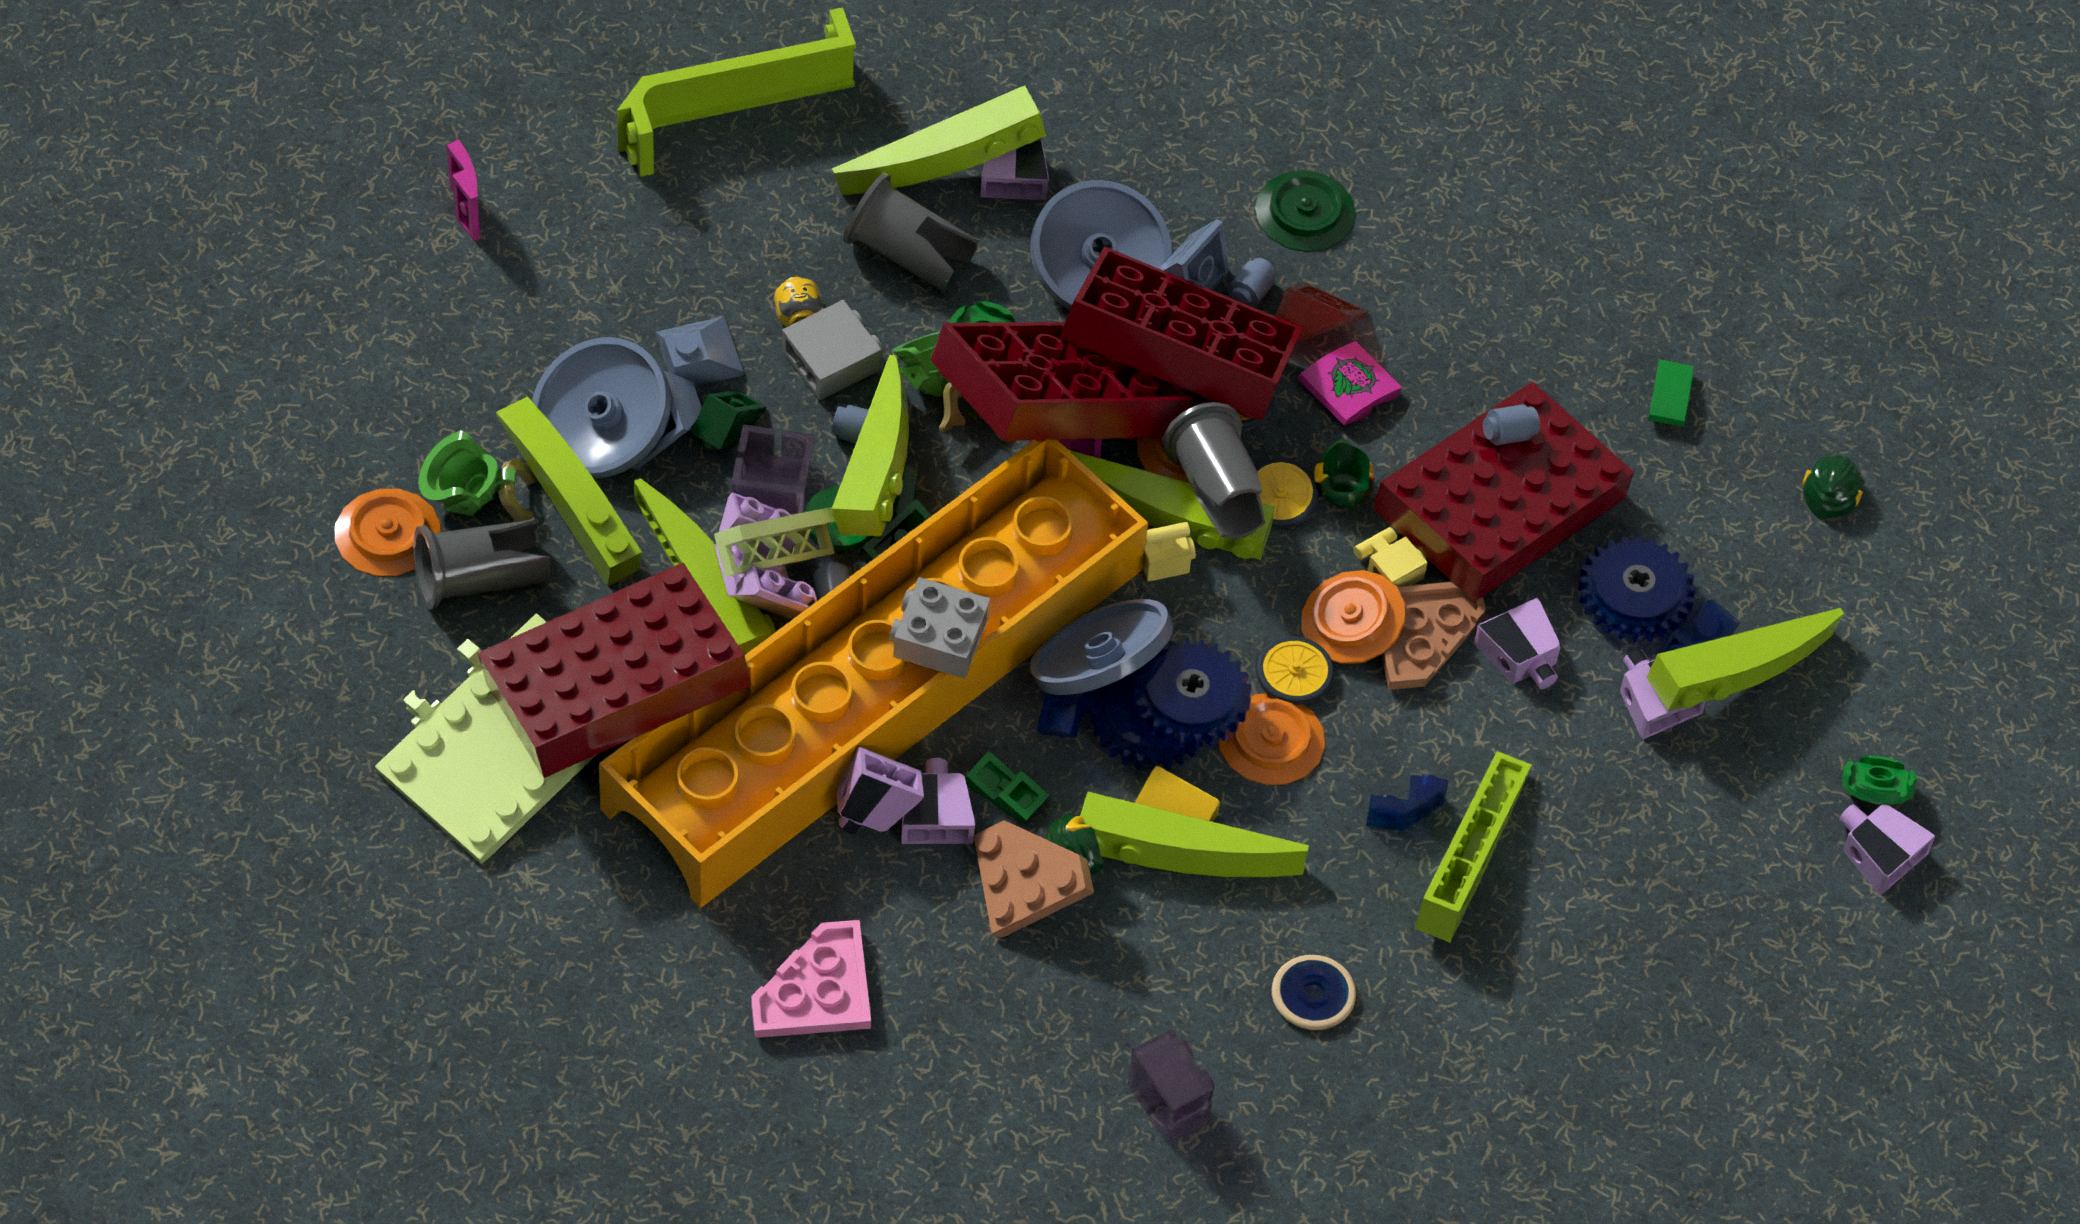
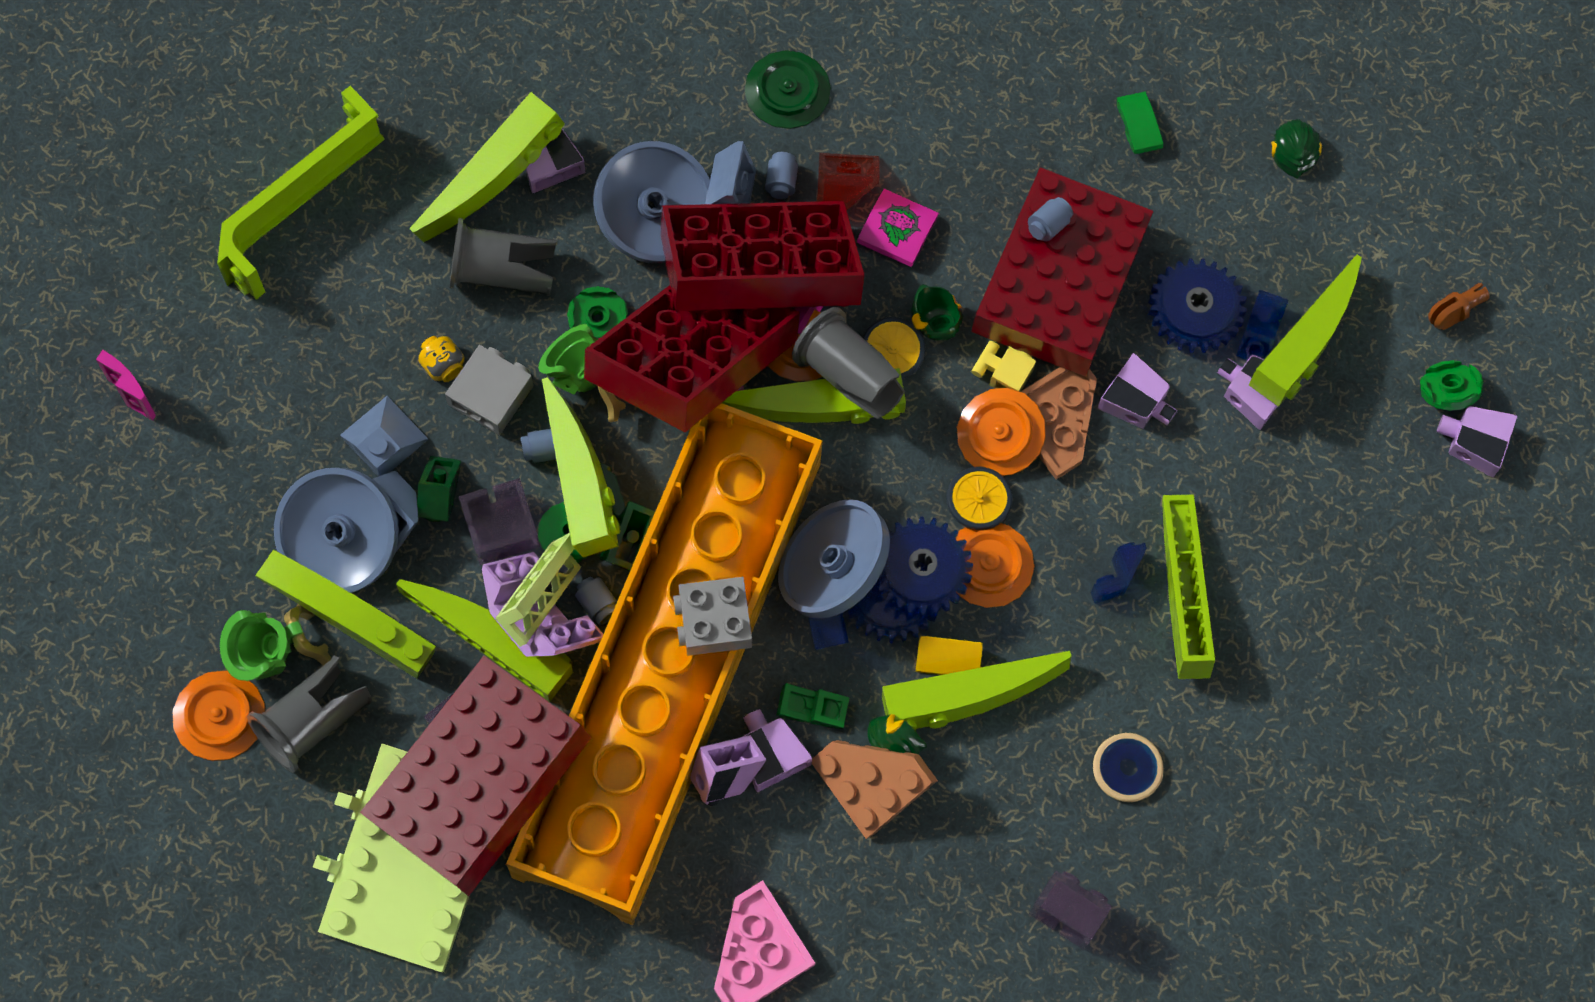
camera: 25 degrees left, 15 degrees up
(1168, 551) = (838, 443): light yellow brick -> none
(1927, 710) = (1457, 306): none -> dark orange arm

